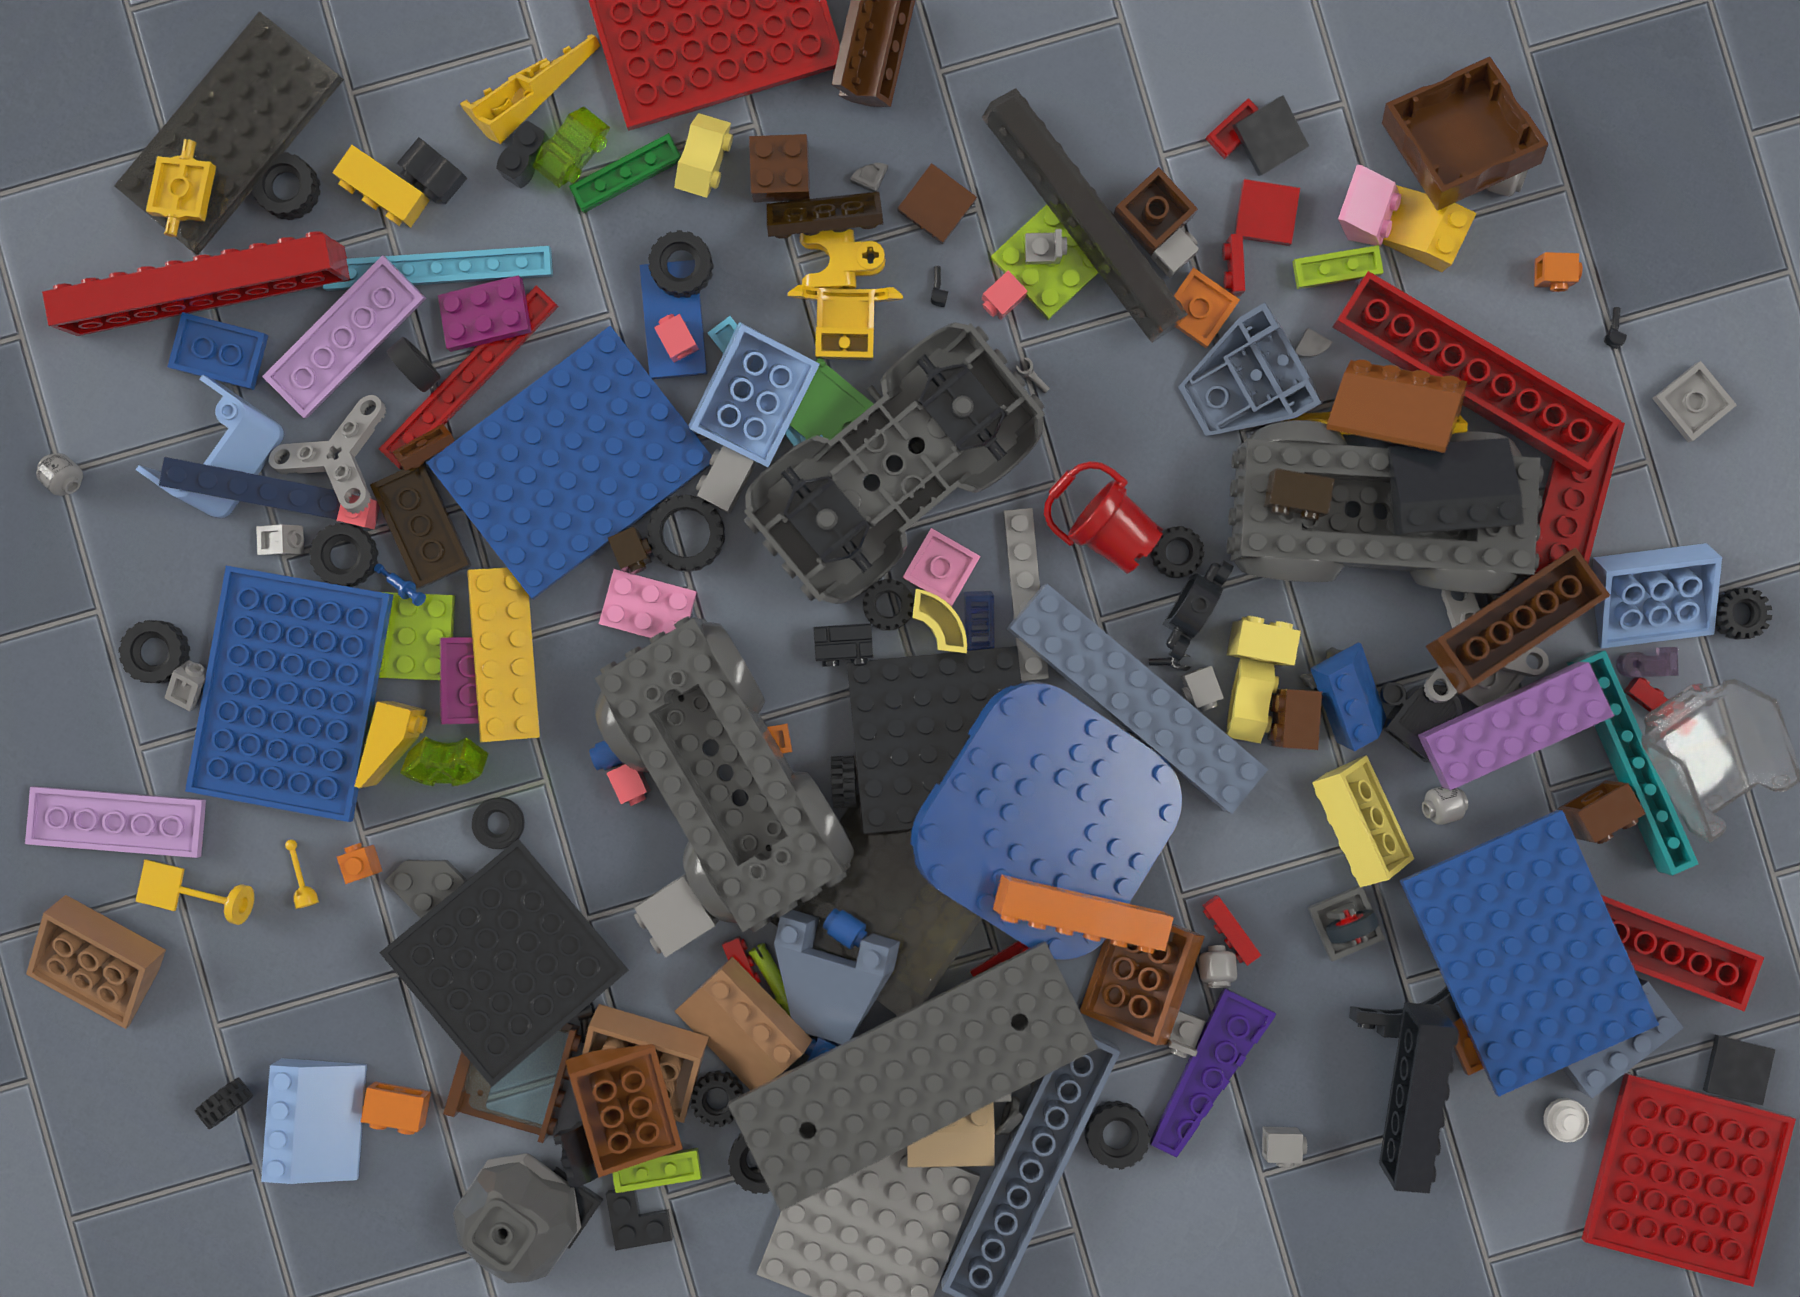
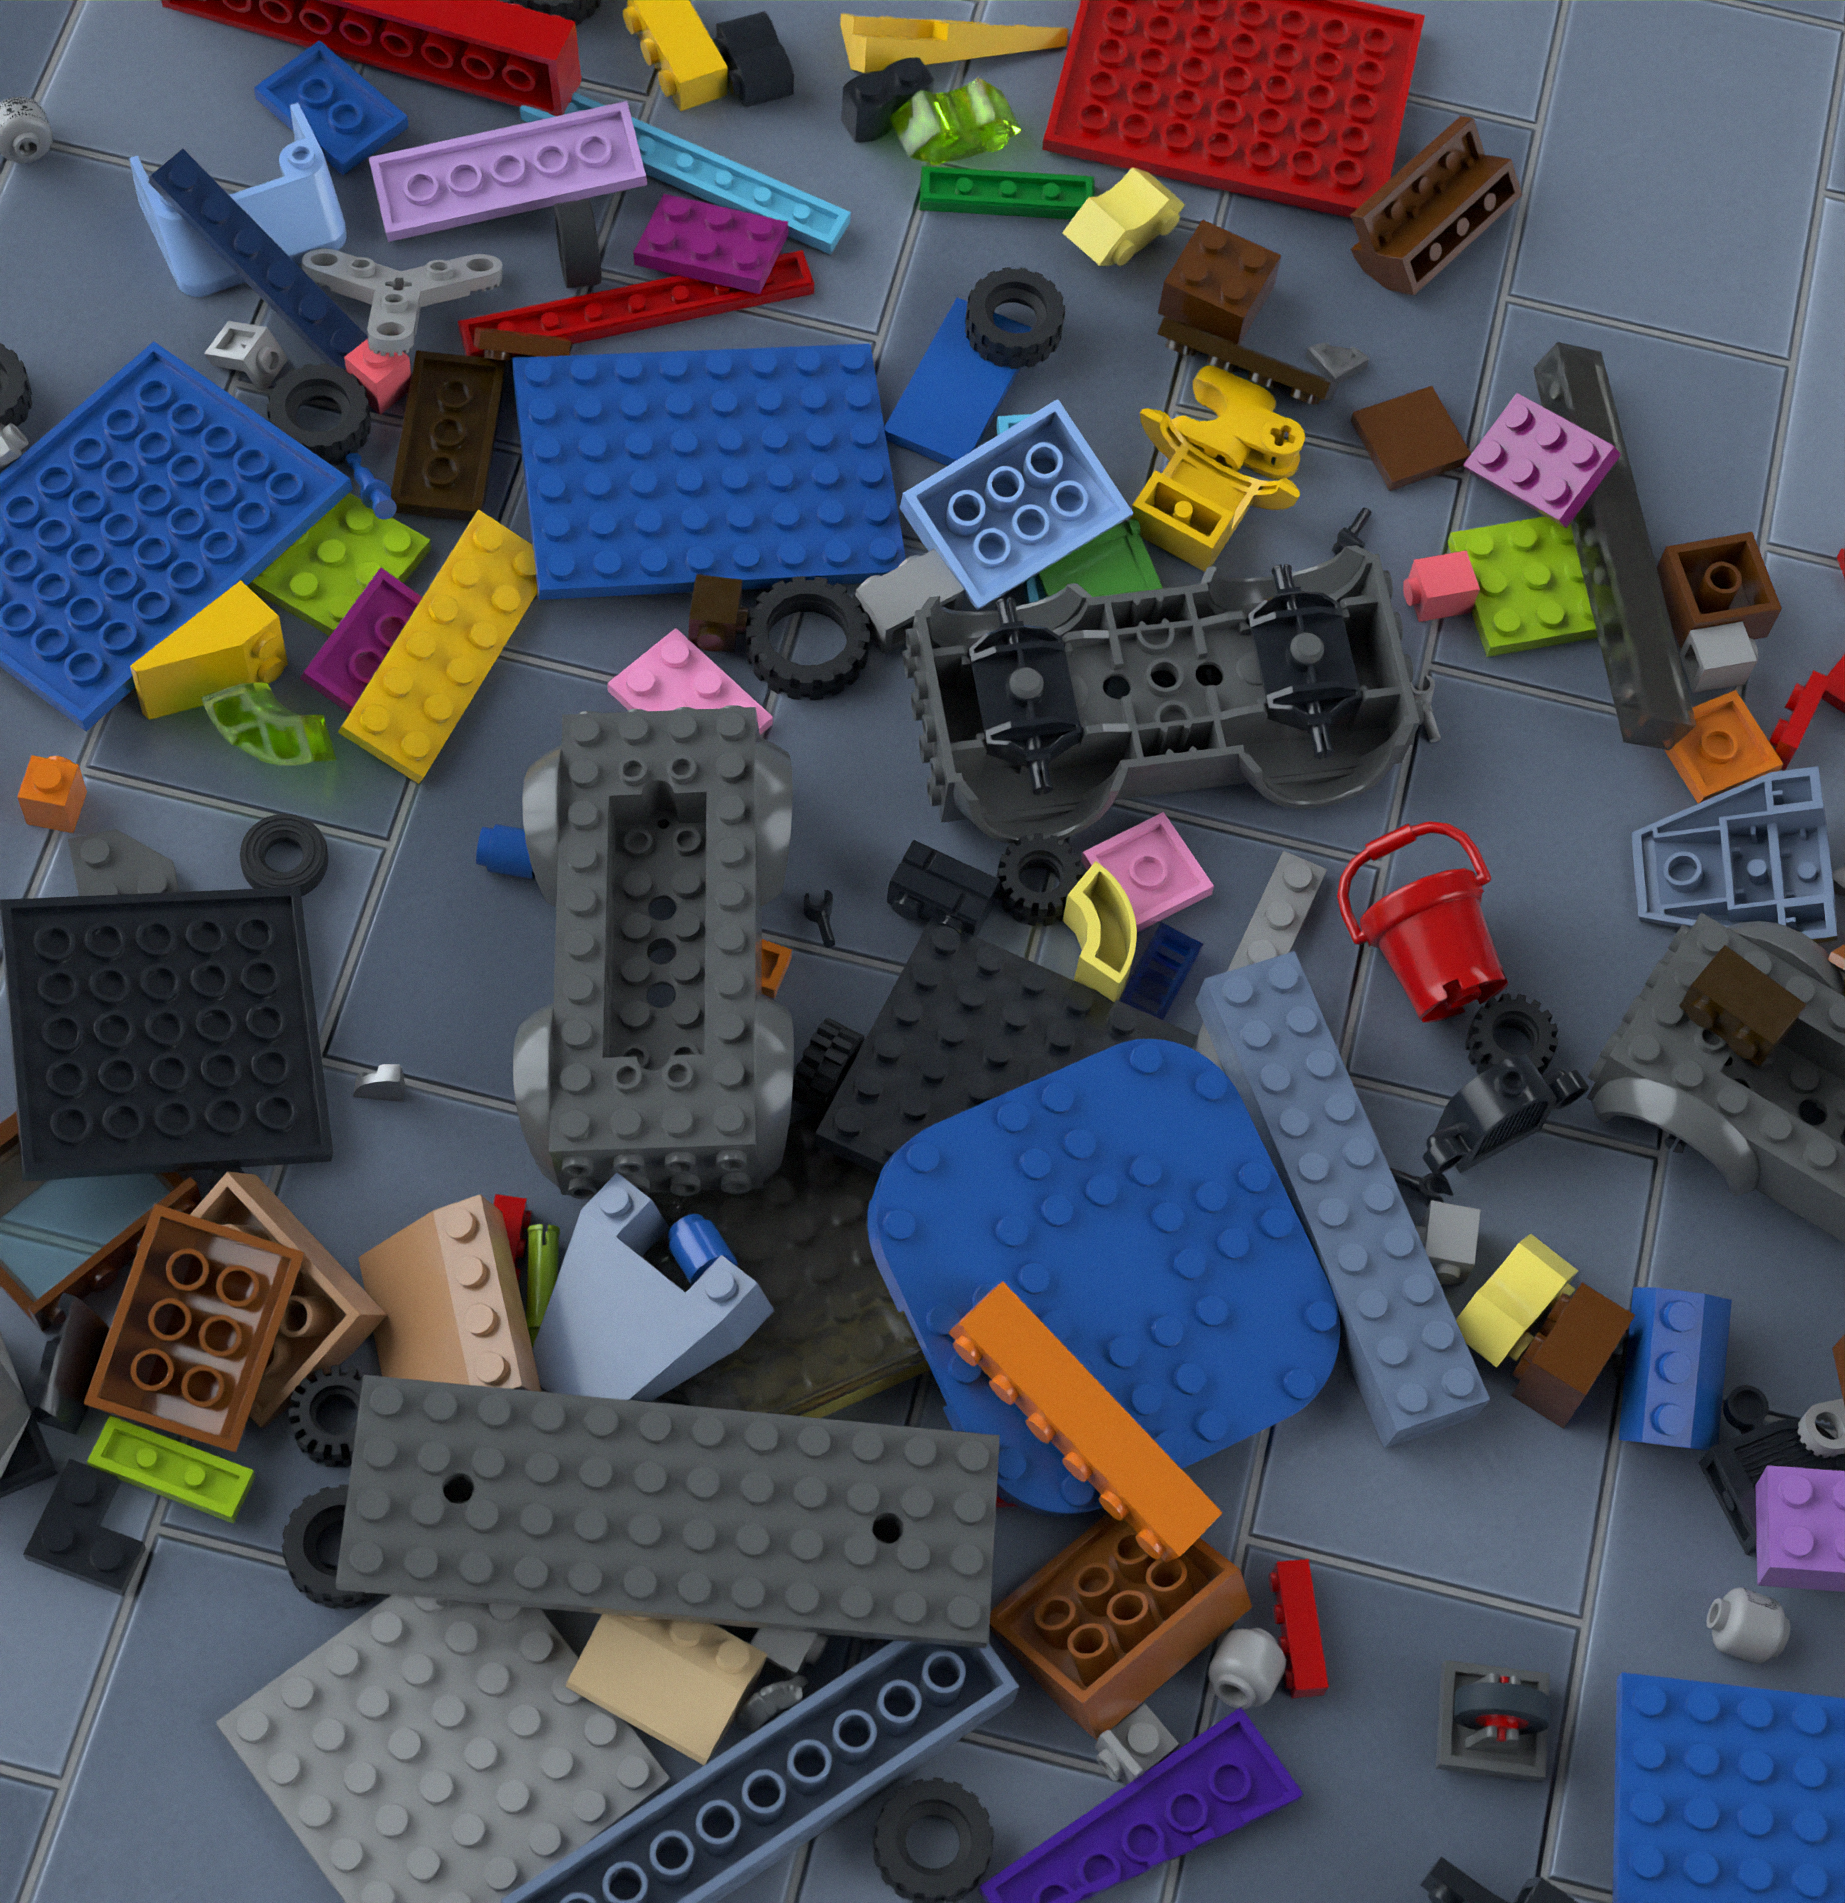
camera: 25 degrees right, 25 degrees down
(625, 918) = (383, 1085): none -> flat silver tile
(628, 784) = (509, 903): coral brick -> none
(673, 917) = (459, 1105): light grey brick -> none
(676, 337) = (952, 395): coral brick -> none
(791, 694) = (821, 916): none -> black hand
(1020, 186) = (1542, 460): none -> plate
(1045, 247) = (1534, 553): light grey bracket -> none
(1263, 642) = (1579, 1217): light yellow brick -> none
(1363, 822) = (1600, 1575): light yellow slope -> none

